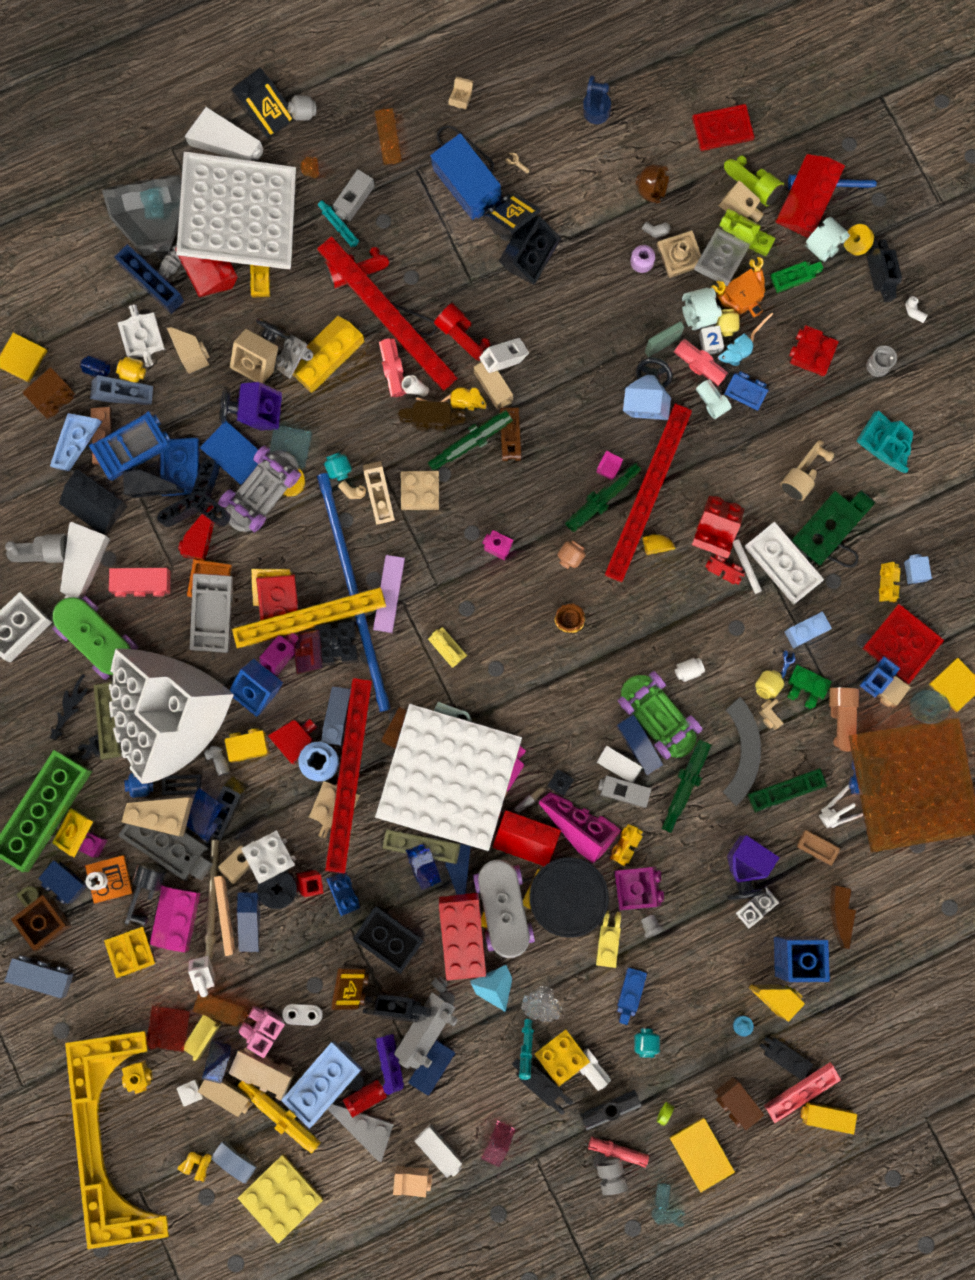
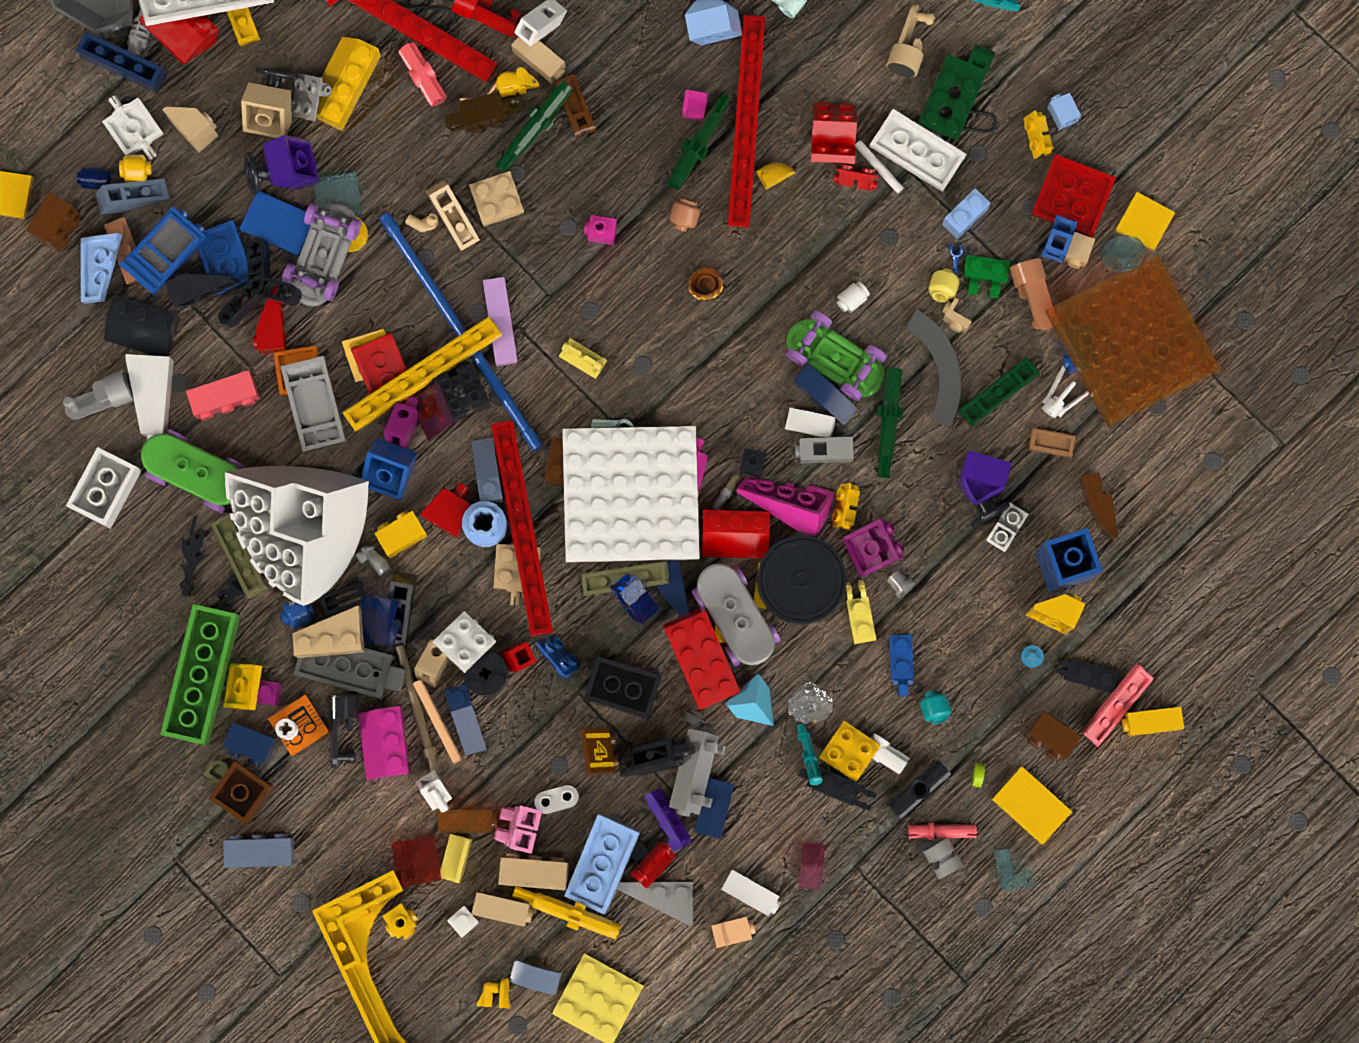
camera: 15 degrees left, 0 degrees up
(129, 952) = (347, 795): yellow slope -> none
(216, 1062) = (481, 878): clear blue slope -> none
(337, 466) = (398, 201): teal head -> none
(414, 386) = (452, 86): white cone -> none

